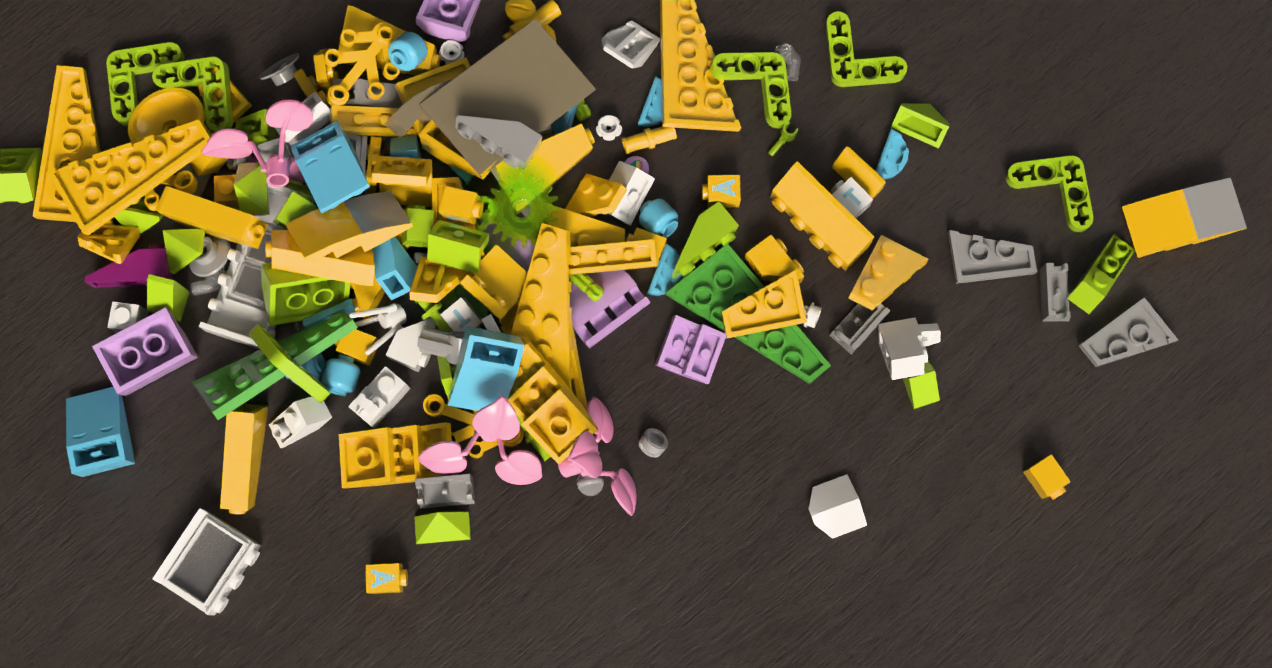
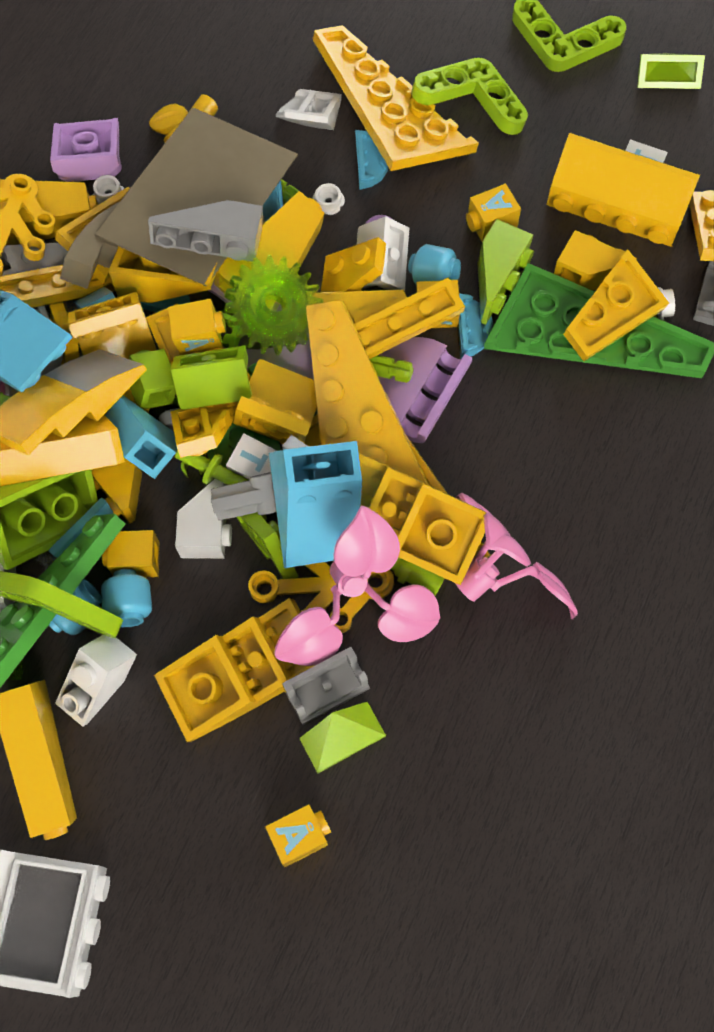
camera: 25 degrees left, 10 degrees down
(379, 397) = (188, 604): white hinge -> none
(389, 317) = (162, 503): white plant -> none
(407, 51) = (55, 191): medium azure head -> none
(590, 486) = (505, 600): light grey tile -> none
(648, 138) = (380, 193): yellow pin -> none
(653, 442) = (559, 516): light grey tile -> none
(690, 349) = (545, 396): lavender slope -> none
(784, 136) = (529, 136): lime hand -> none
(791, 58) = (498, 60): clear arm -> none
(851, 165) = (620, 129): yellow slope -> none
(893, 156) = (657, 114): medium azure tile -> none

